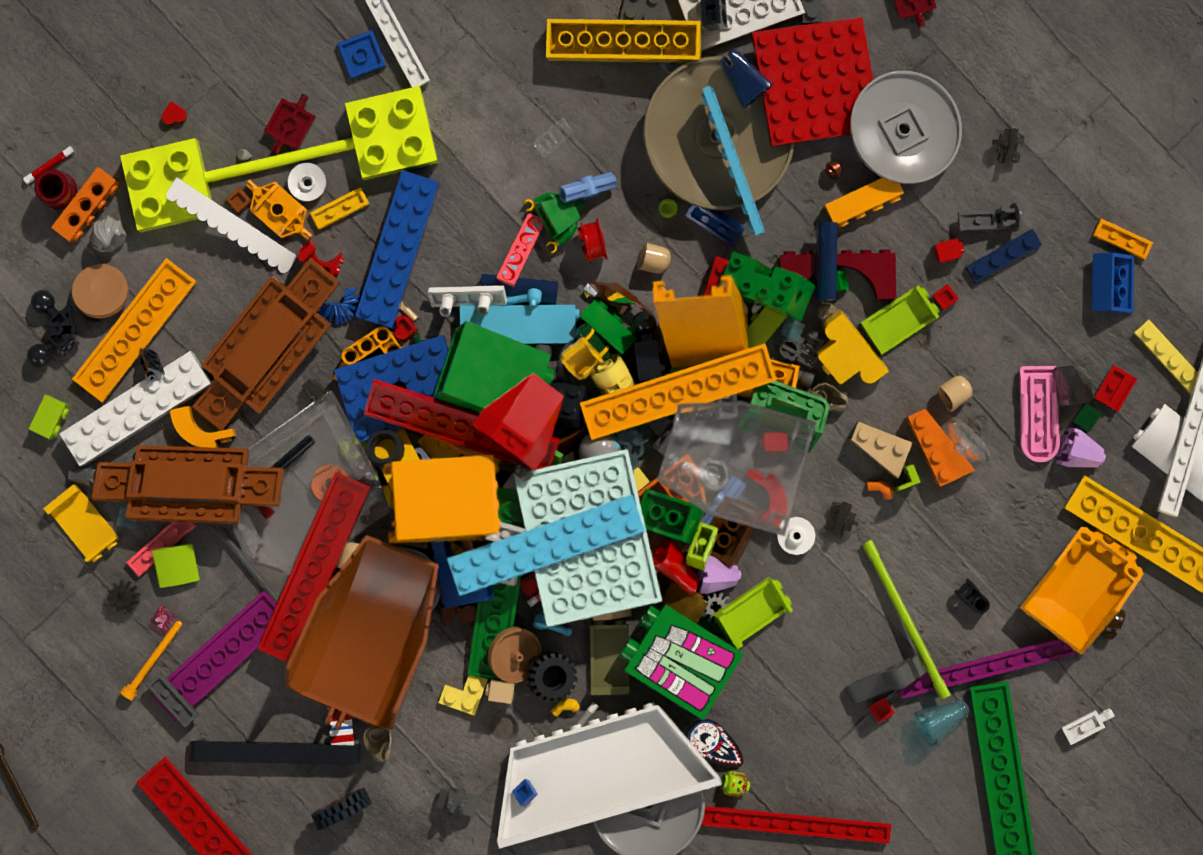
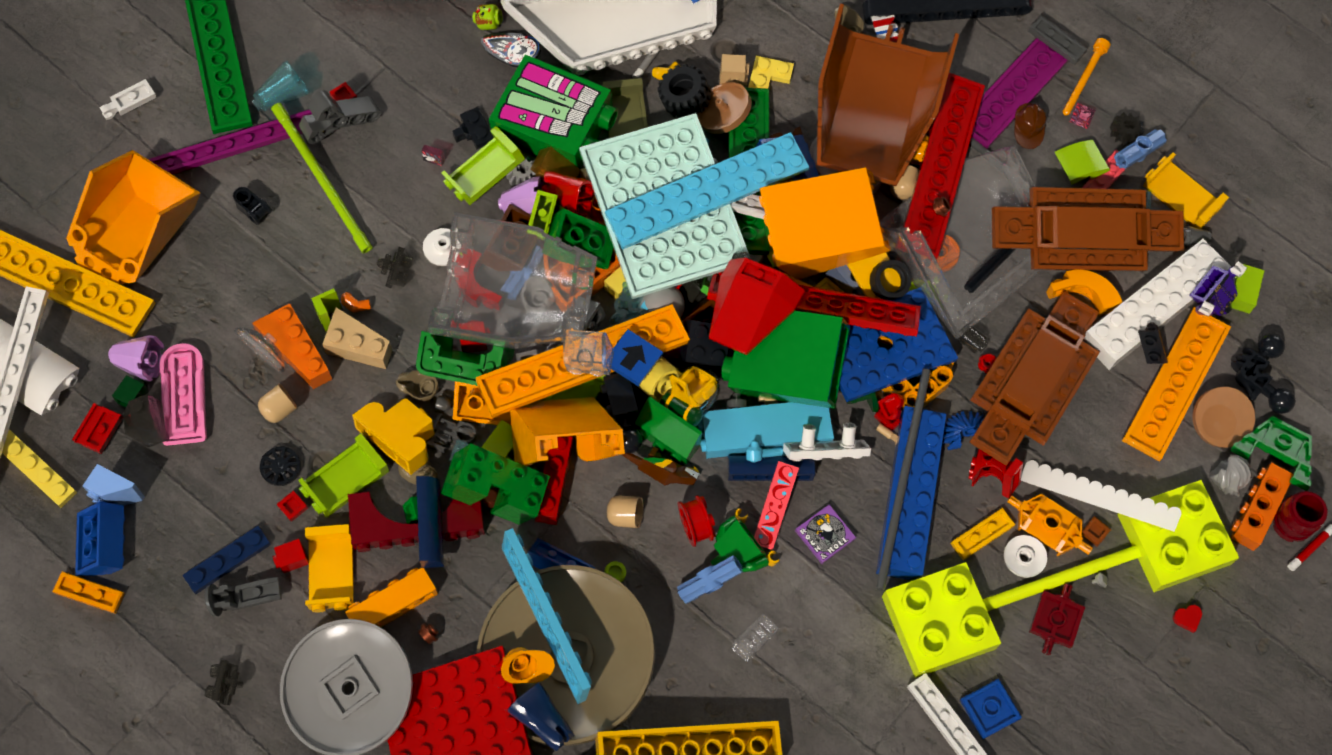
camera: 165 degrees right, 20 degrees down
(51, 260) = (1284, 443): none -> green wing
(82, 406) = (1217, 290): none -> dark purple torso
(124, 565) = (1140, 148): none -> medium blue piece
(218, 610) = (1029, 125): none -> reddish brown piece
(310, 368) = (987, 358): none -> red plate
(324, 518) = (941, 206): none -> copper plate
(402, 331) = (891, 406): none -> red tile
(404, 257) = (902, 483): none -> dark grey piece
(479, 223) = (825, 534): none -> tile
(633, 386) = (634, 357): none -> blue tile
(675, 385) = (587, 352): none -> clear slope
(755, 124) = (527, 666): none -> light orange piece
(757, 662) = (473, 129): none -> black hinge
(799, 634) = (432, 155): none -> clear pink tile
(914, 236) = (330, 568): none -> yellow panel
(954, 336) = (280, 466): none -> black wheel
(1102, 326) = (111, 488): none -> light blue slope

